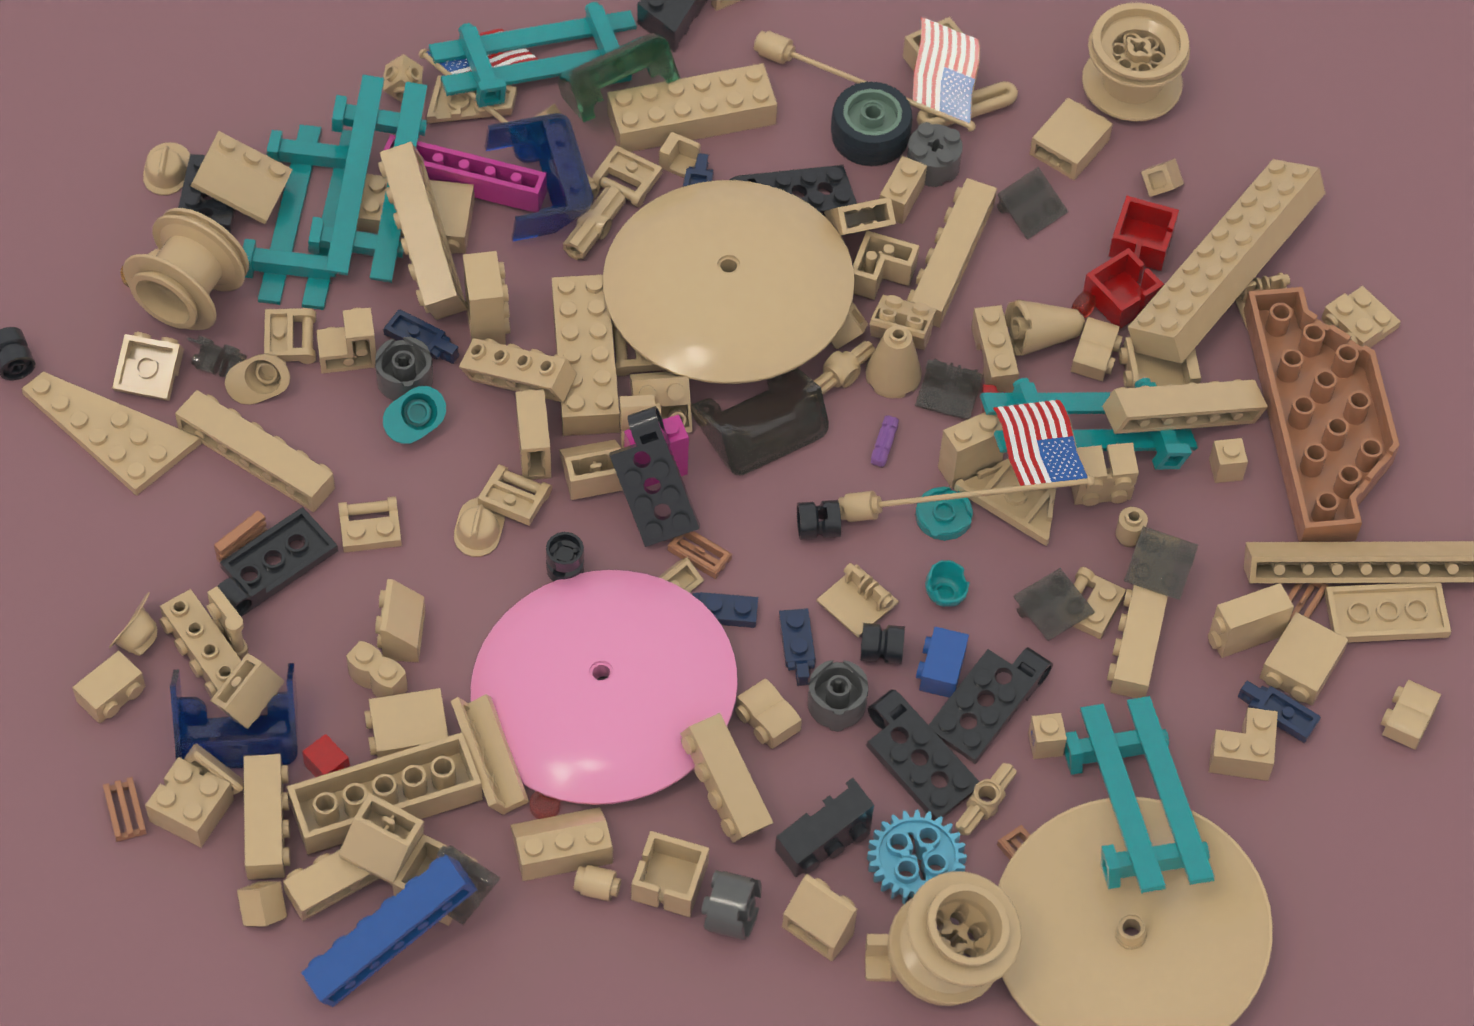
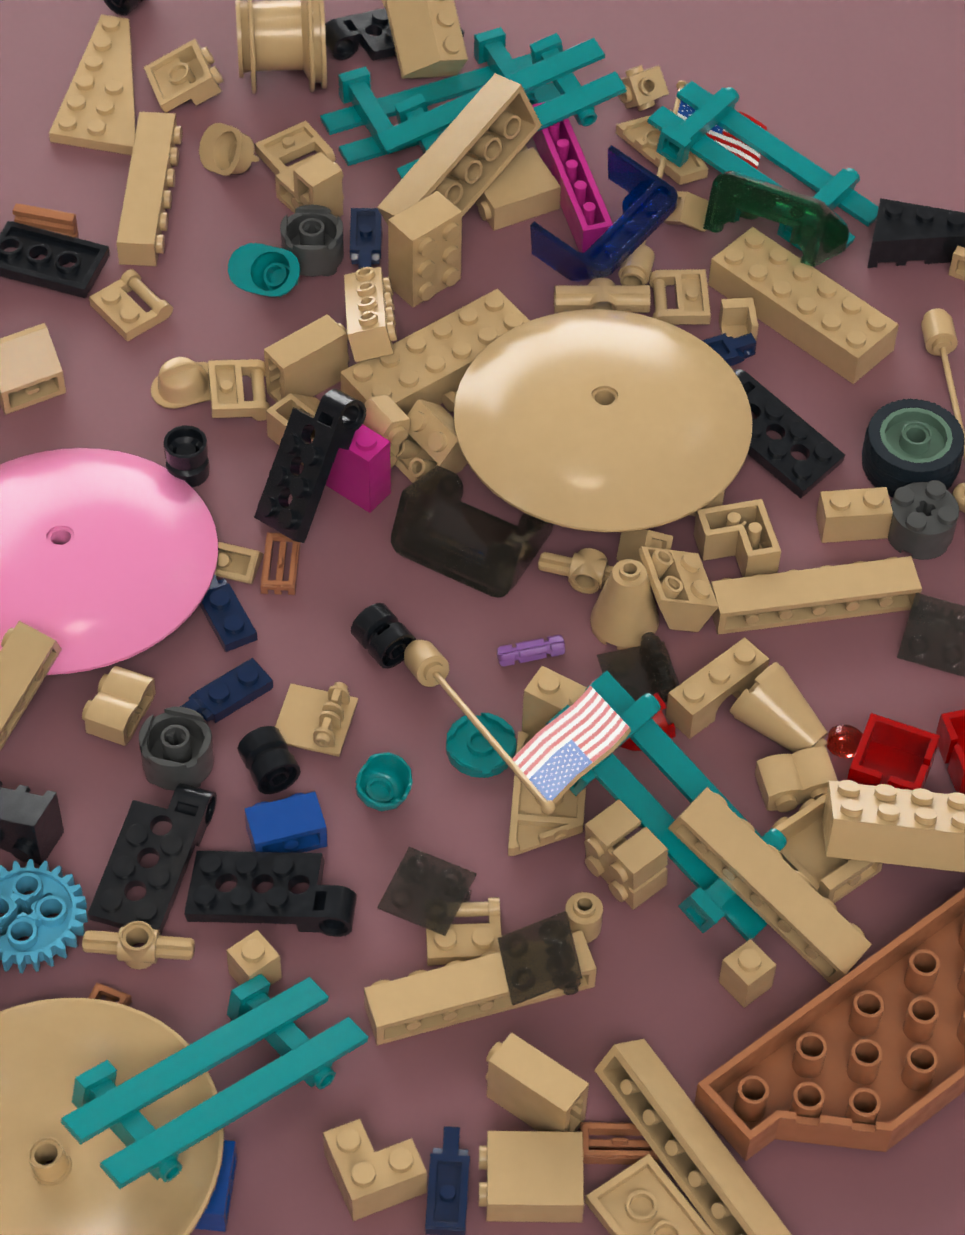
camera: 60 degrees right, 5 degrees down
(212, 355) = (226, 109): clear smoke hinge -> none
(862, 216) = (775, 486): tan brick -> none

